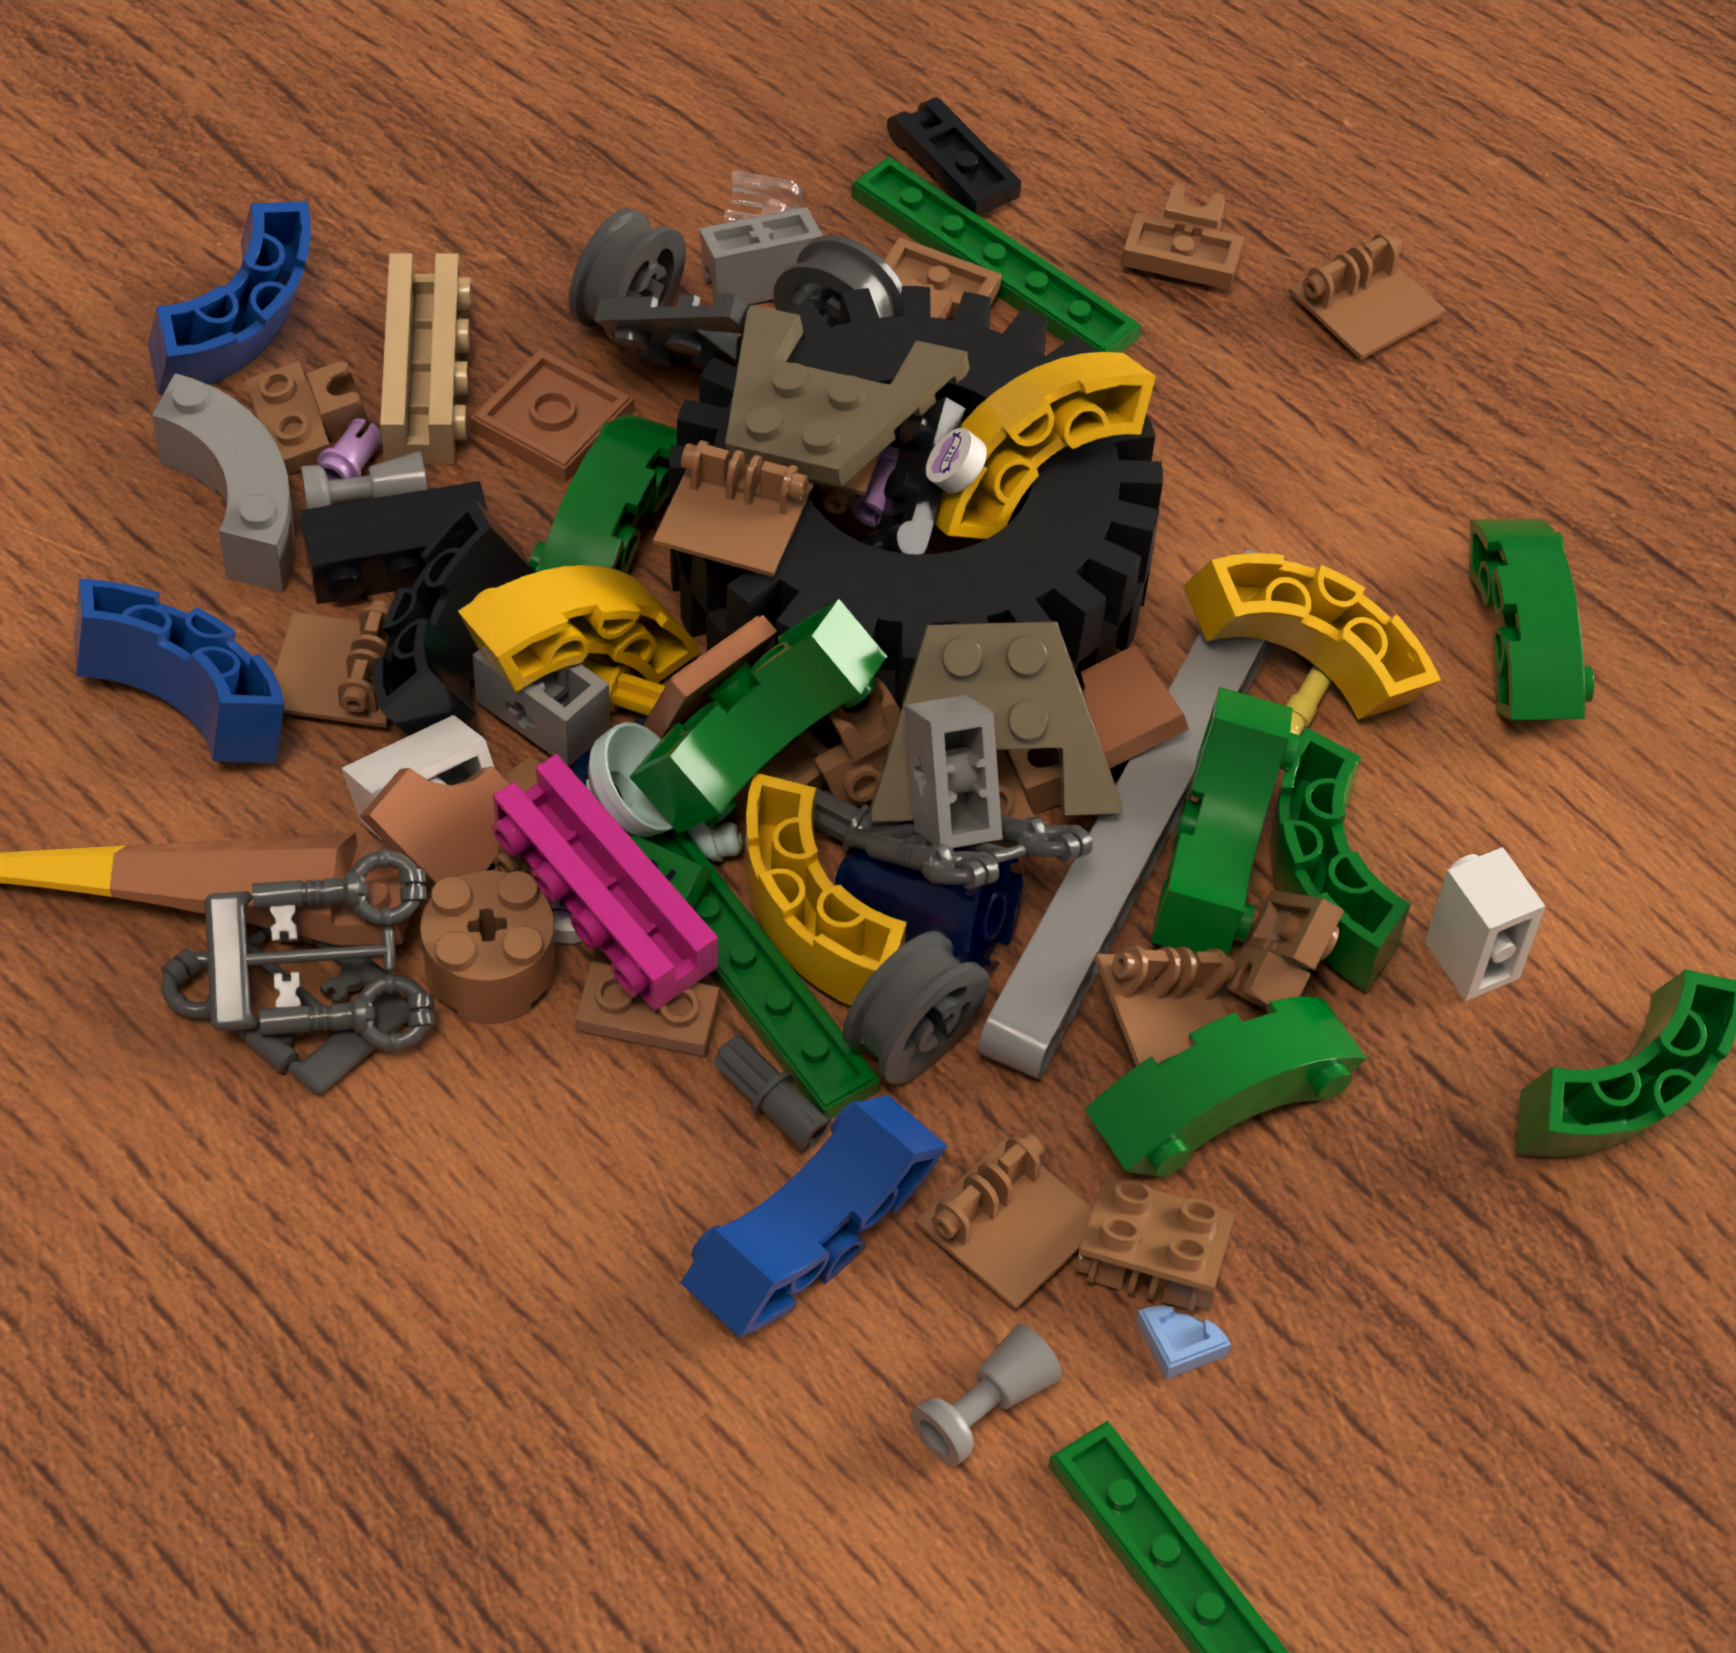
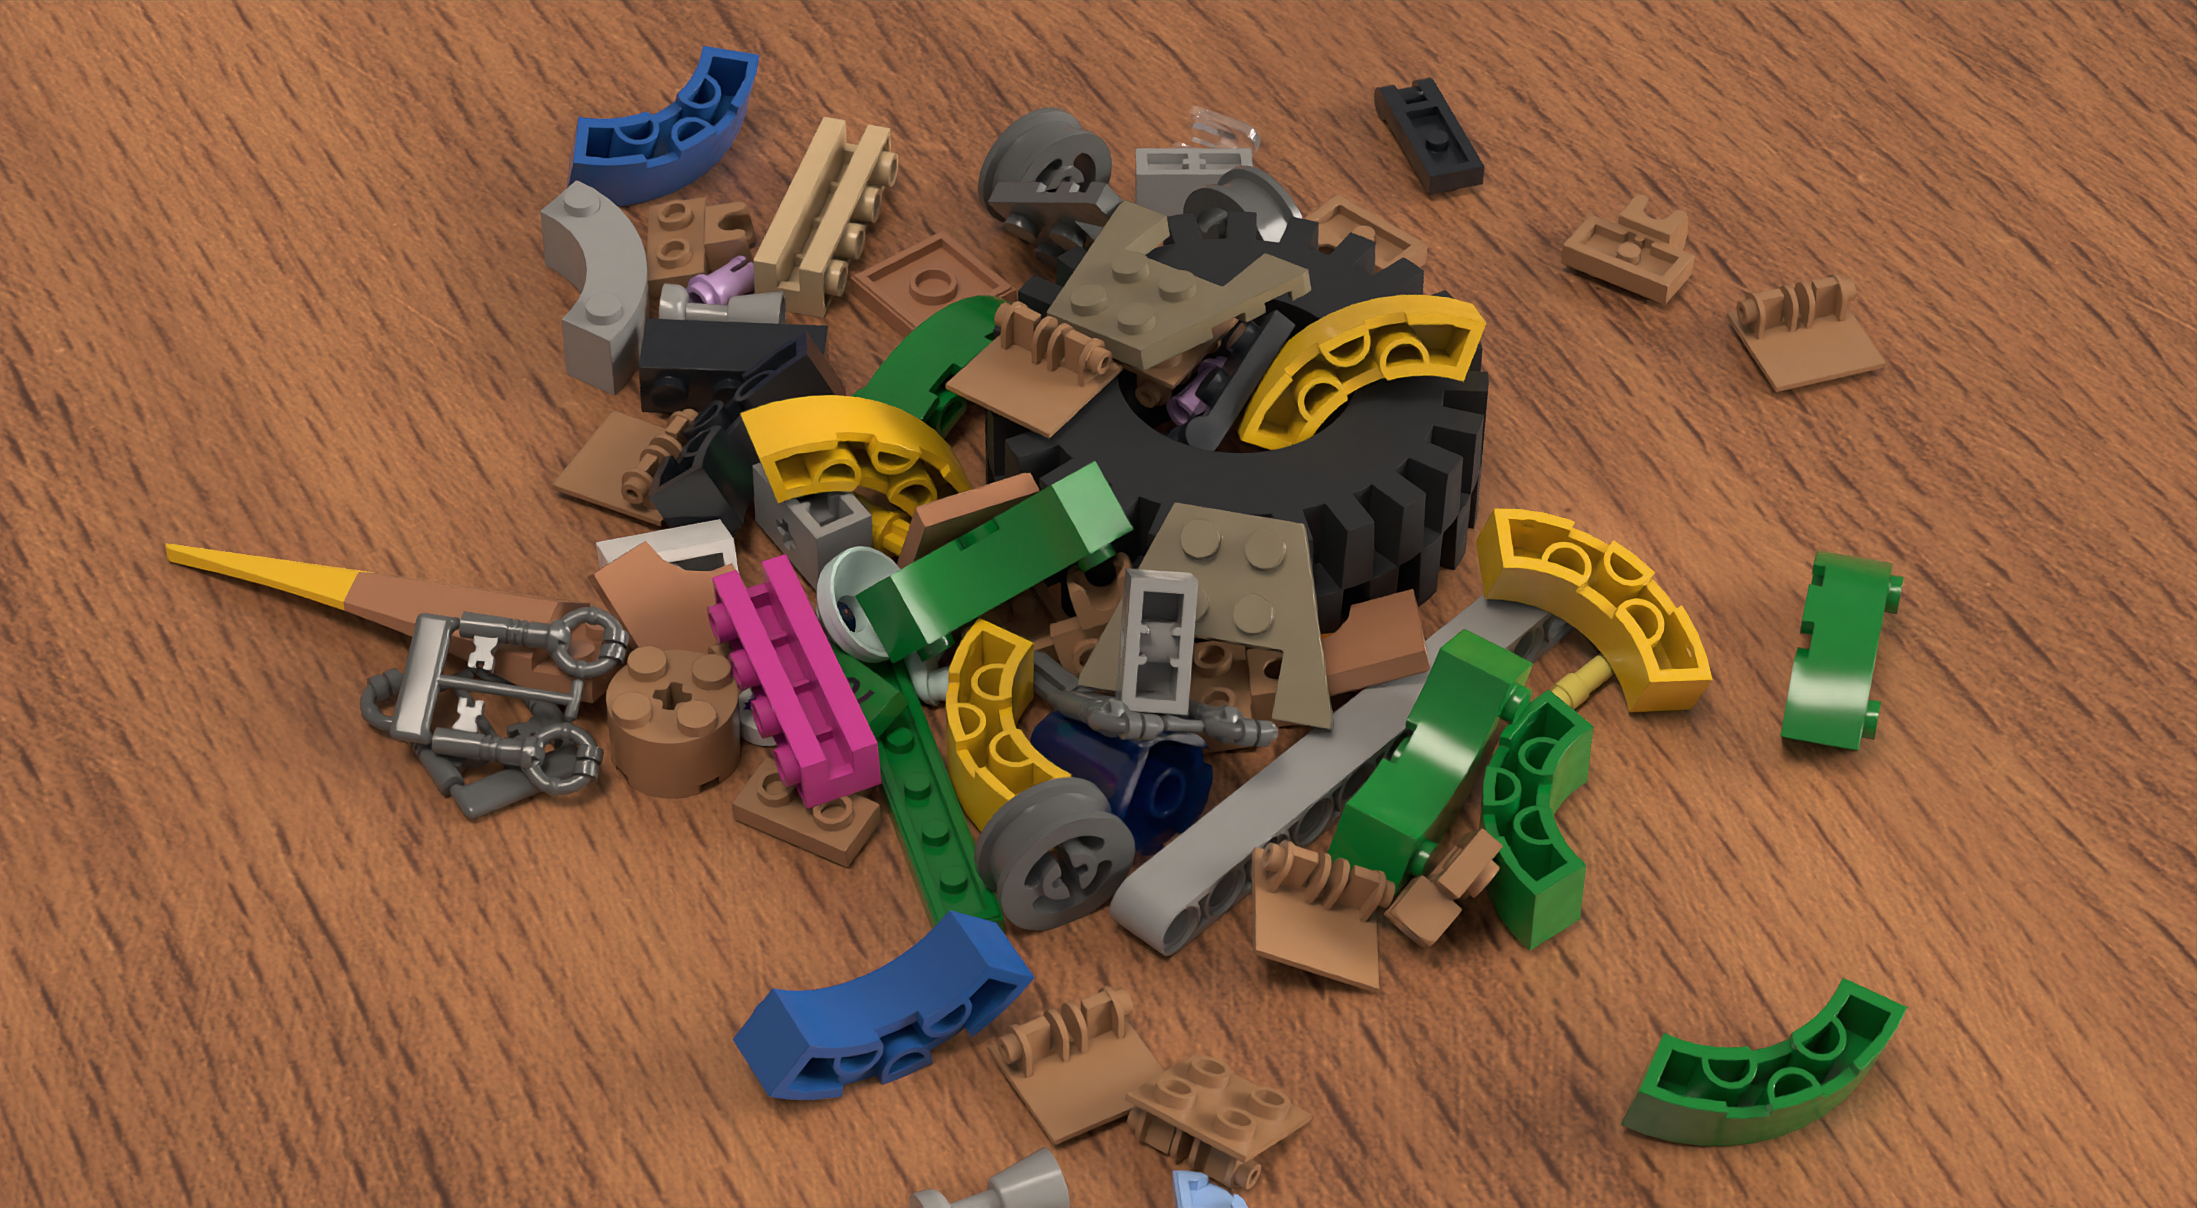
camera: 20 degrees right, 10 degrees down
(183, 660) = (485, 424): blue brick -> none
(772, 1093) = (890, 901): dark grey axle -> none
(956, 460) = (1264, 367): white tile -> none
(1026, 278) = (1454, 253): green tile -> none
(1226, 1076) = (1339, 981): green brick -> none
(1484, 923) = (1662, 904): white brick -> none

